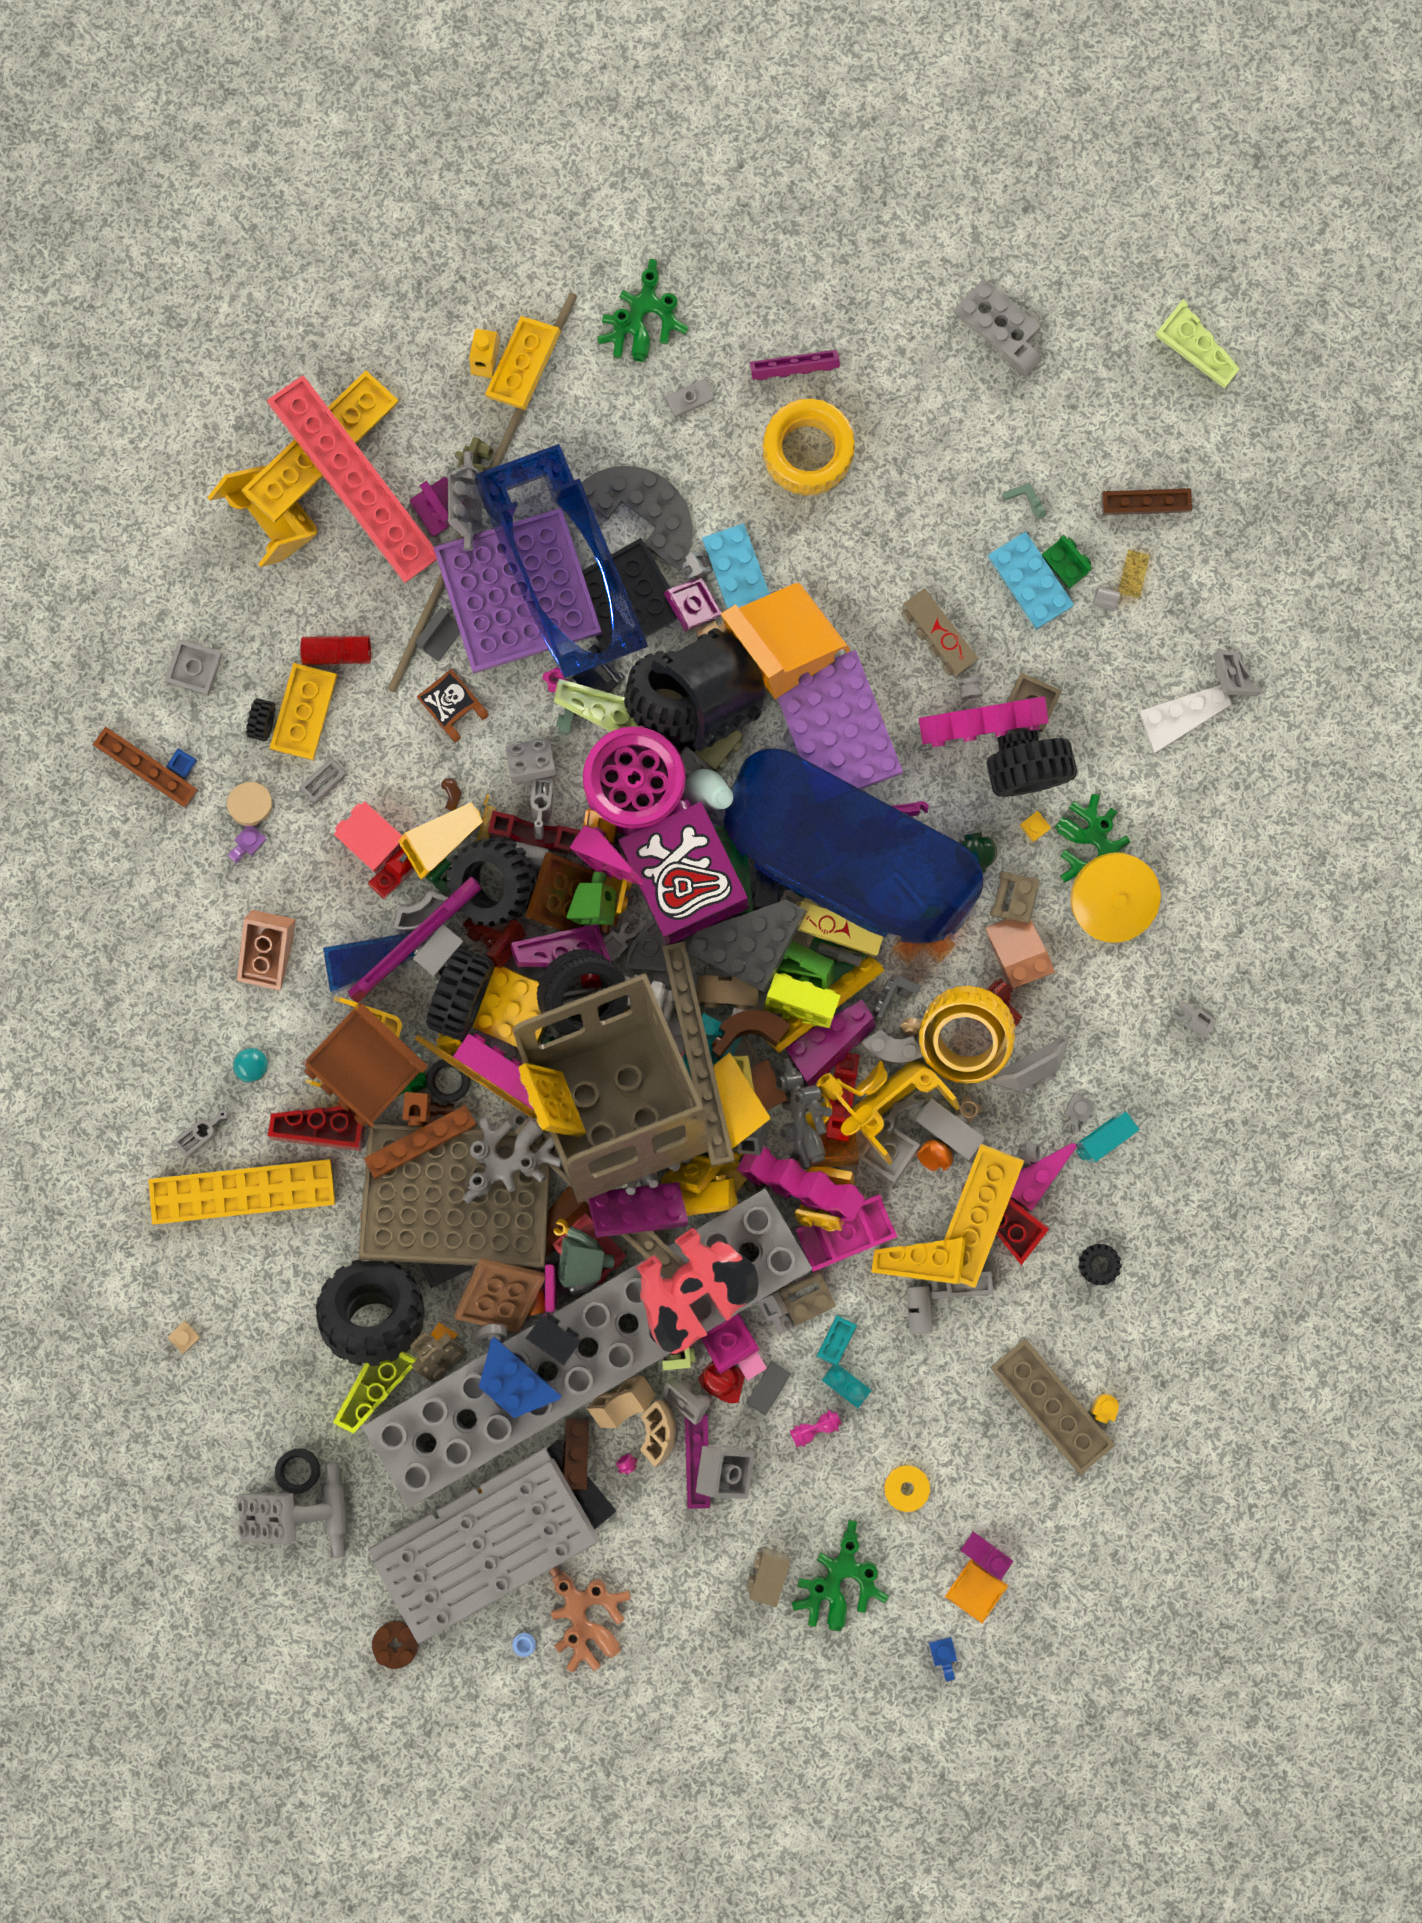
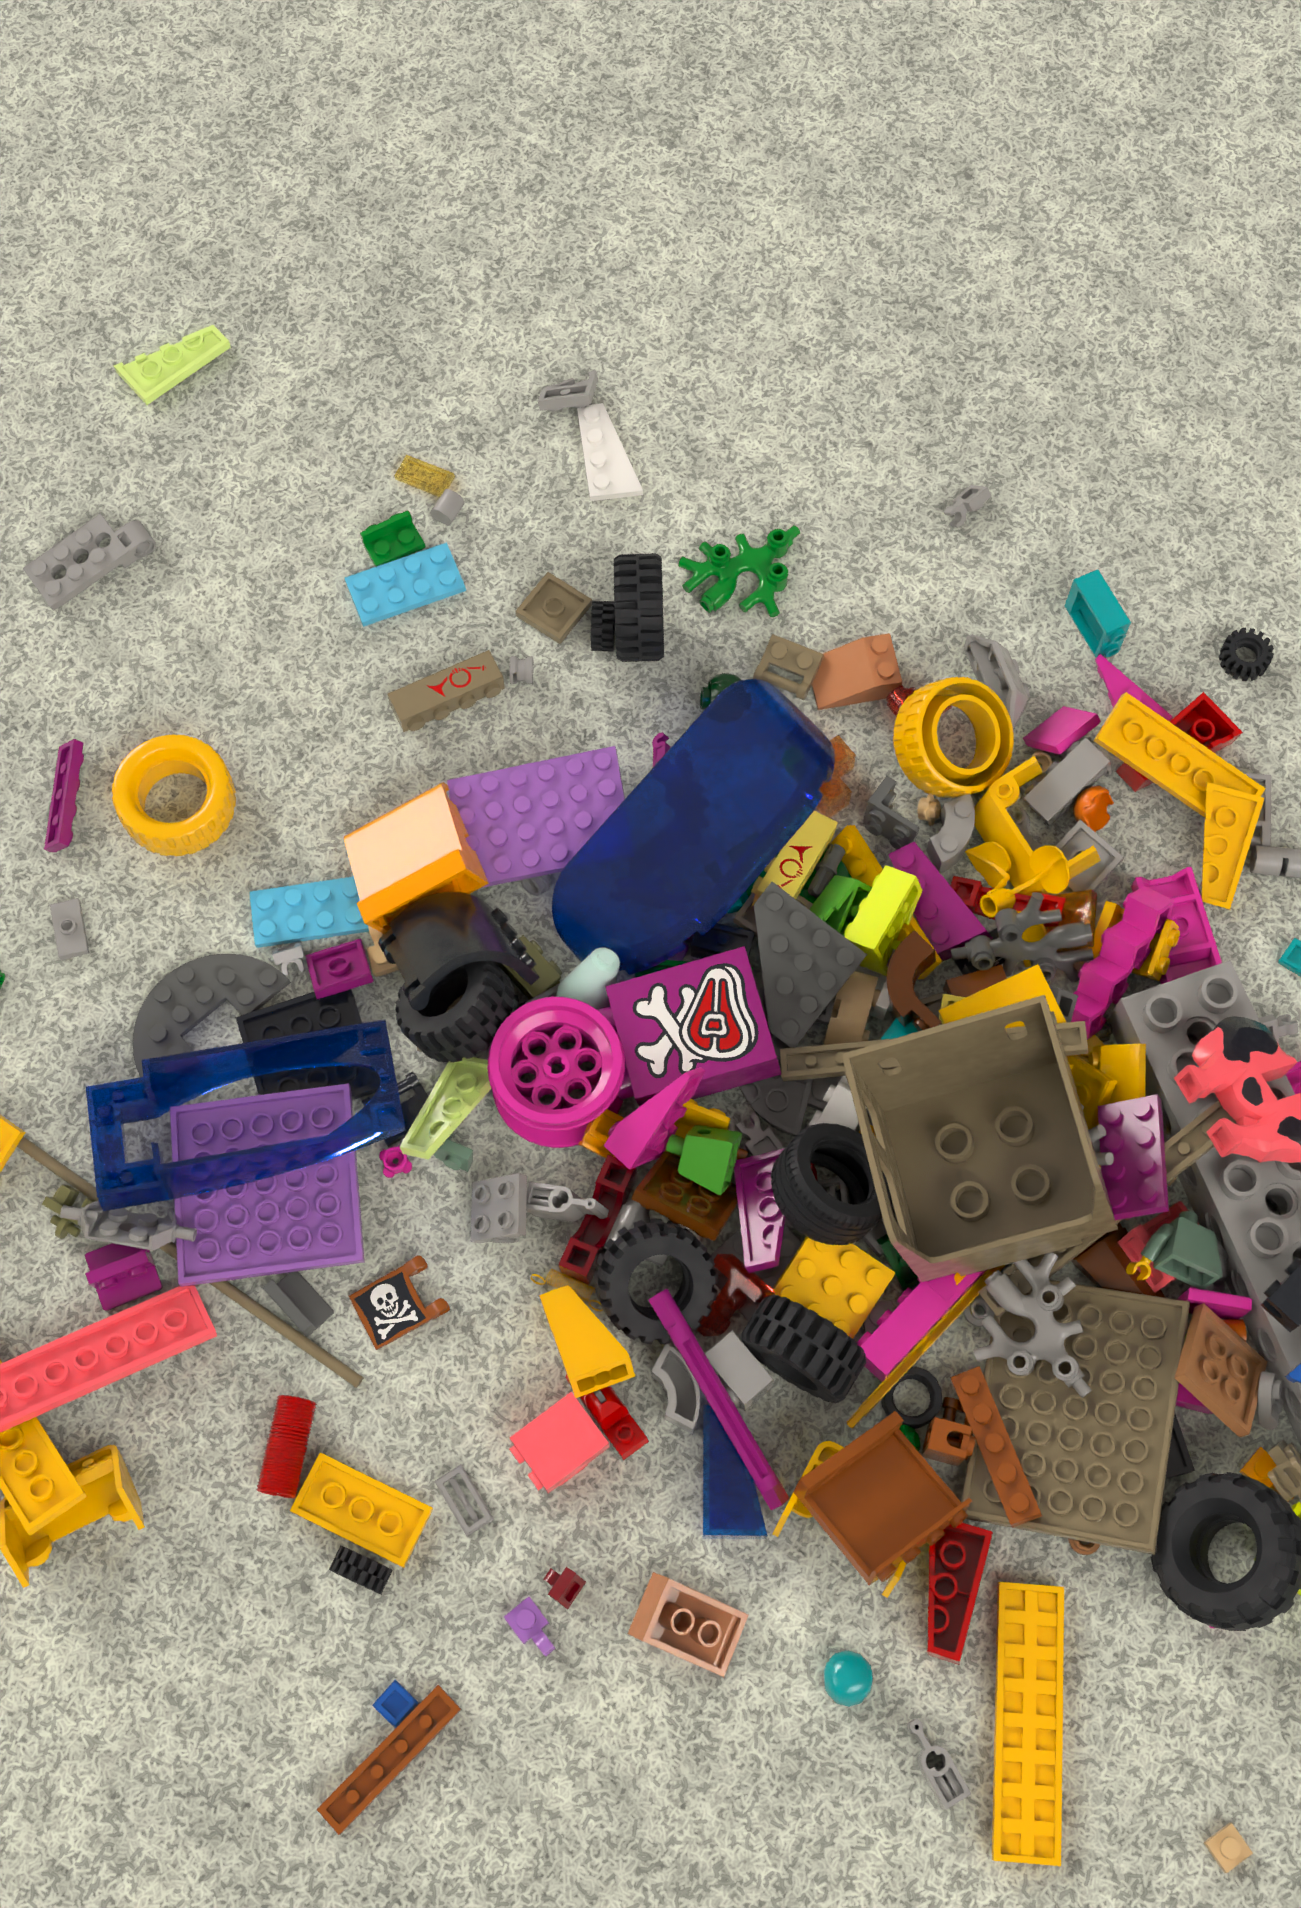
camera: 75 degrees left, 15 degrees down
(193, 667) = (261, 1660): light grey plate -> none
(249, 803) = (475, 1611): tan tile -> none
(275, 861) = (564, 1586): none -> dark red tile
(434, 878) = (640, 1357): dark green plate -> none
(448, 1044) = (863, 1387): yellow tile -> none
(453, 792) = (518, 1321): reddish brown arm -> none
(551, 1100) = (979, 1233): yellow plate -> none
(810, 1304) = (1262, 988): dark tan plate -> none
(983, 720) = (566, 664): dark pink brick -> none
(998, 1121) = (1062, 730): none -> dark pink tile
(1029, 1152) = (1101, 705): light grey plate -> none
(1035, 503) = (314, 561): sand green piece -> none
(1035, 826) = (705, 632): yellow plate -> none
(1078, 1110) = (1057, 646): light grey plate -> none
(1115, 897) = (809, 557): yellow dish -> none
(1146, 501) = (342, 446): reddish brown plate -> none

